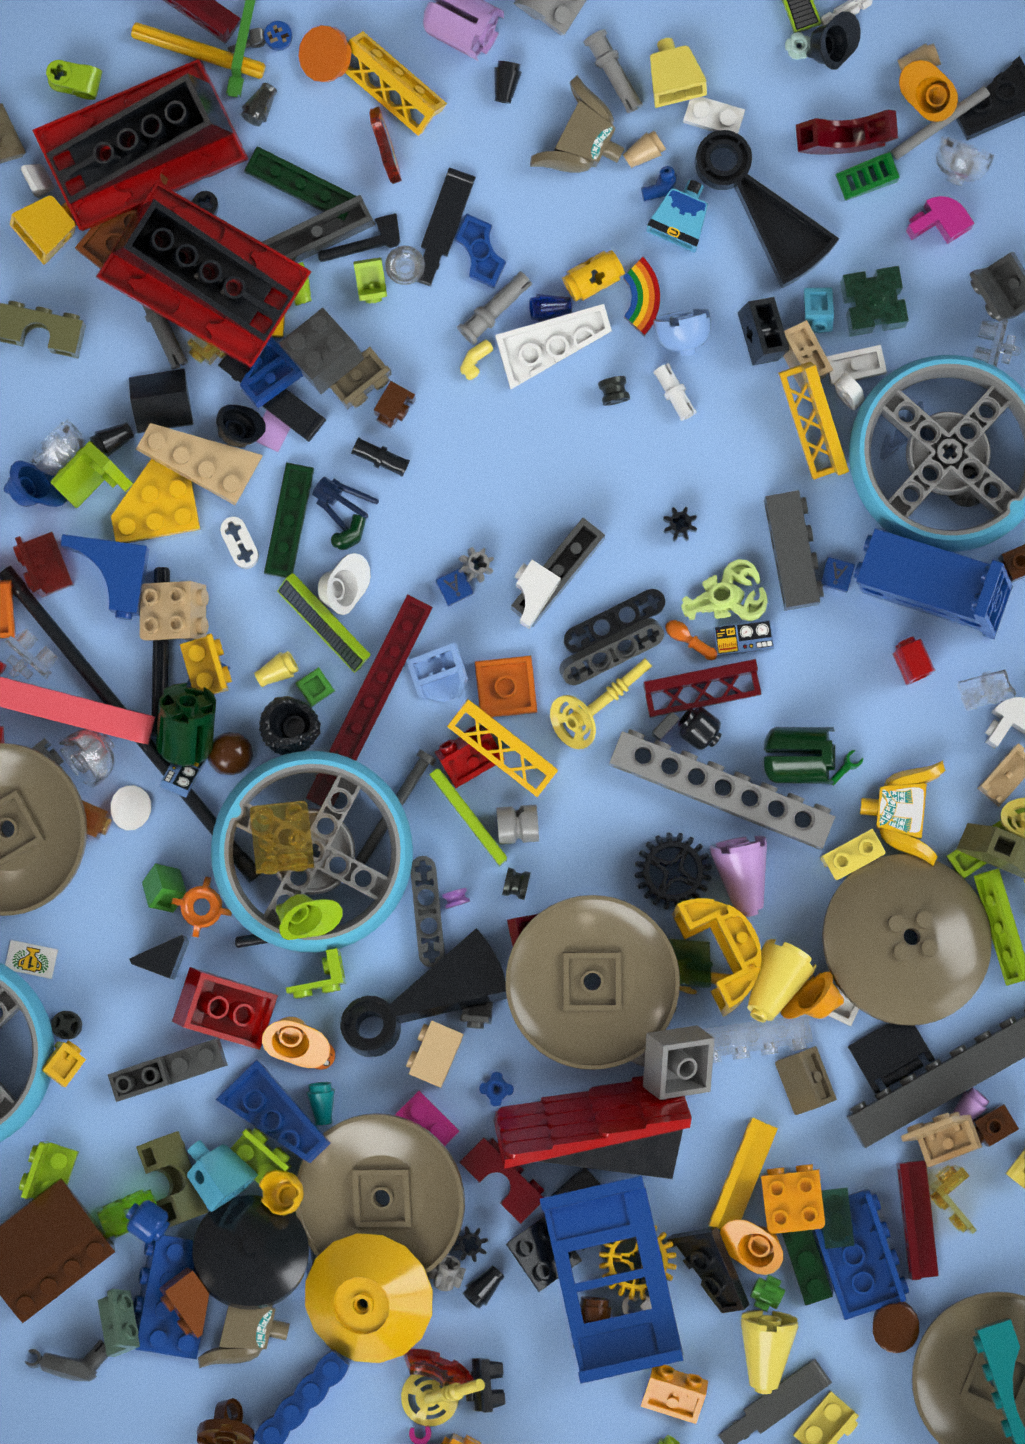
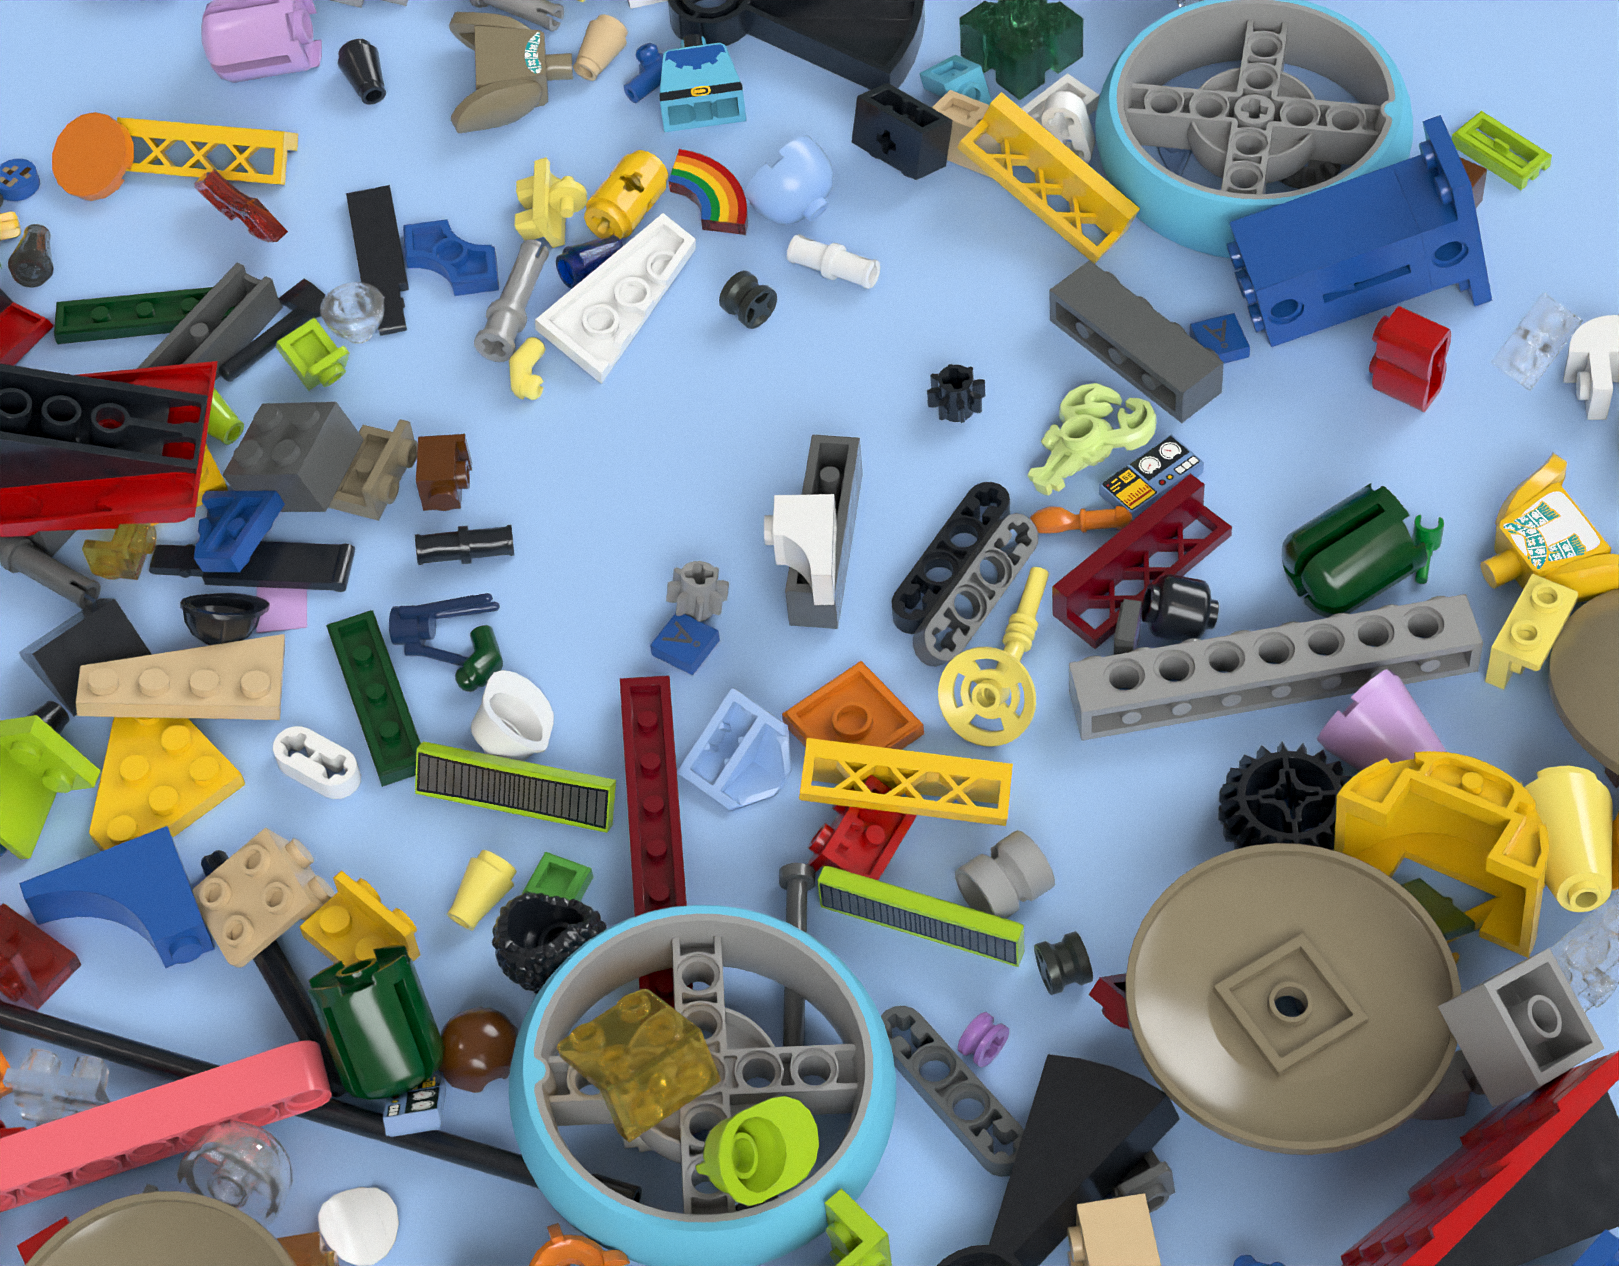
camera: 25 degrees left, 30 degrees down
(553, 252) = (551, 204): none -> light yellow hips

